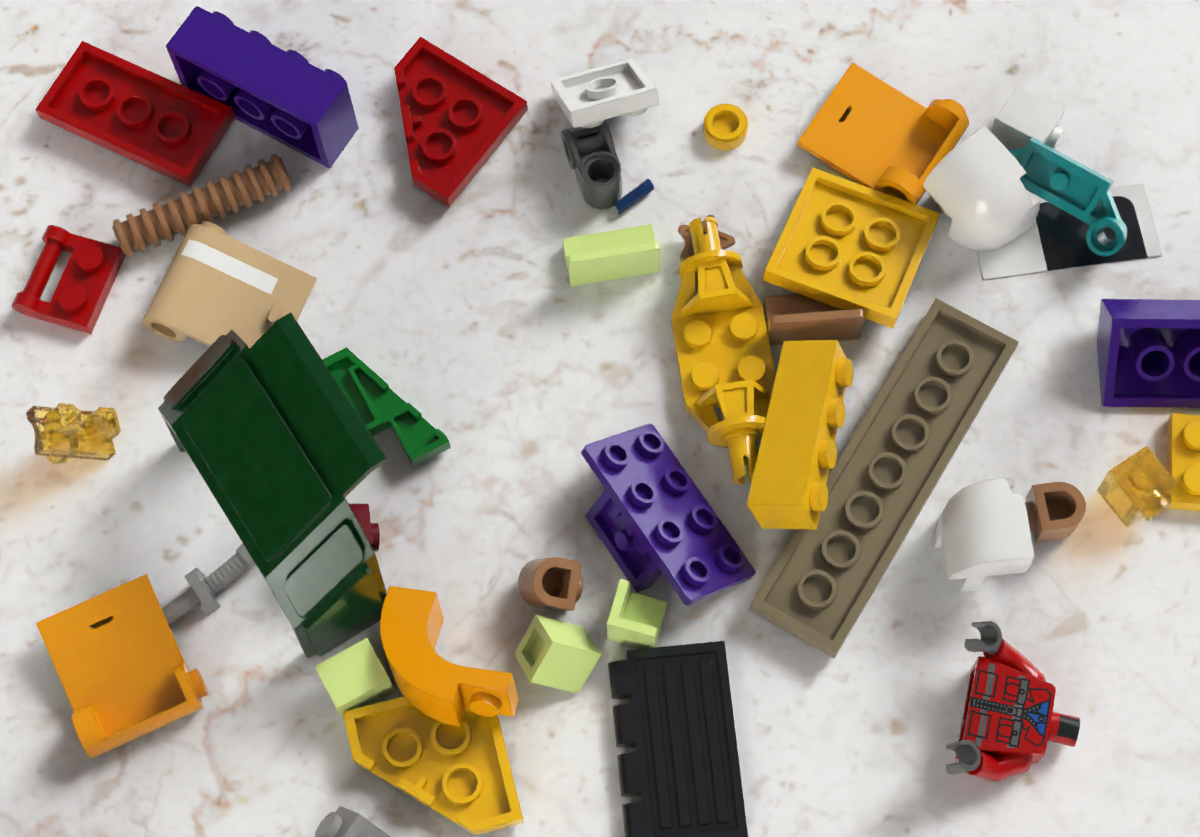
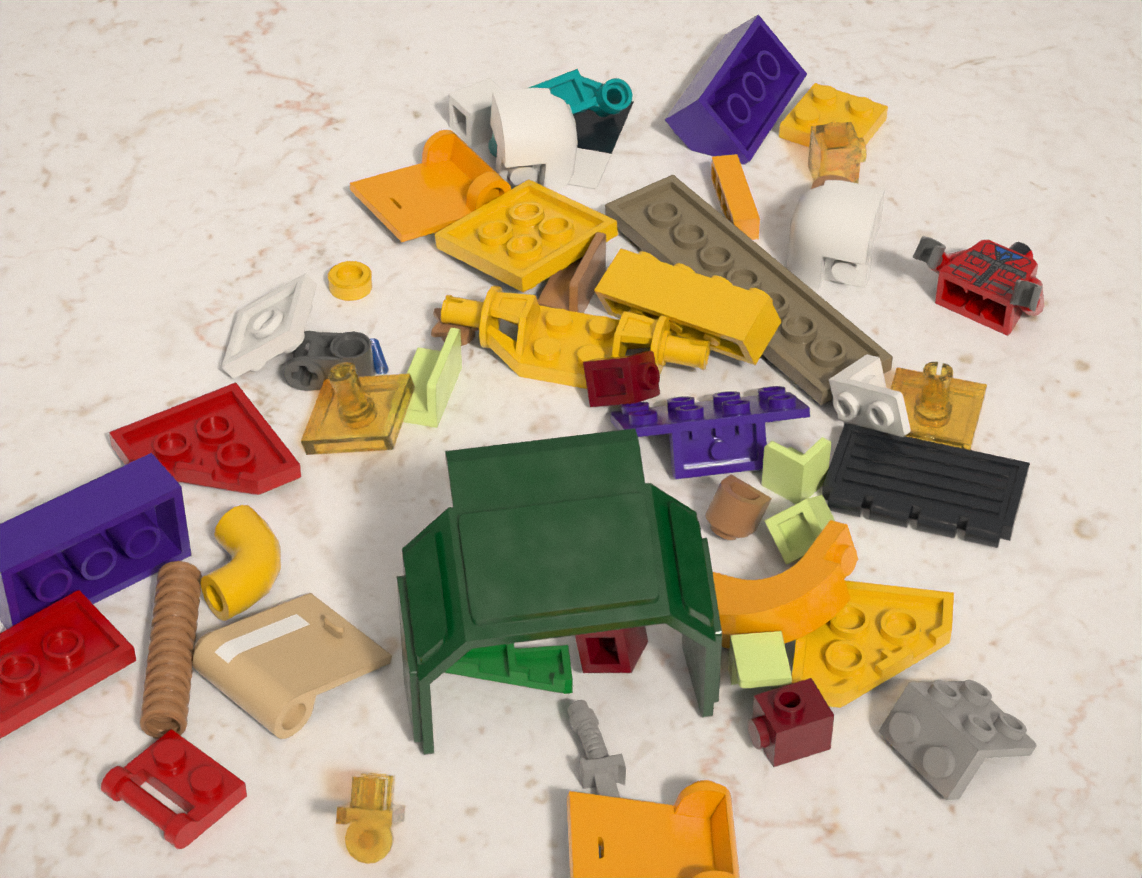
camera: 70 degrees left, 25 degrees down
(306, 726) = (791, 722): none -> dark red brick
(316, 220) = (252, 567): none -> yellow cylinder
(538, 215) = (357, 412): none -> clear yellow tile
(672, 419) = (622, 379): none -> dark red bracket
(765, 634) = (864, 400): none -> white bracket
(790, 719) = (939, 405): none -> clear yellow tile
(1026, 414) = (735, 194): none -> light orange piece

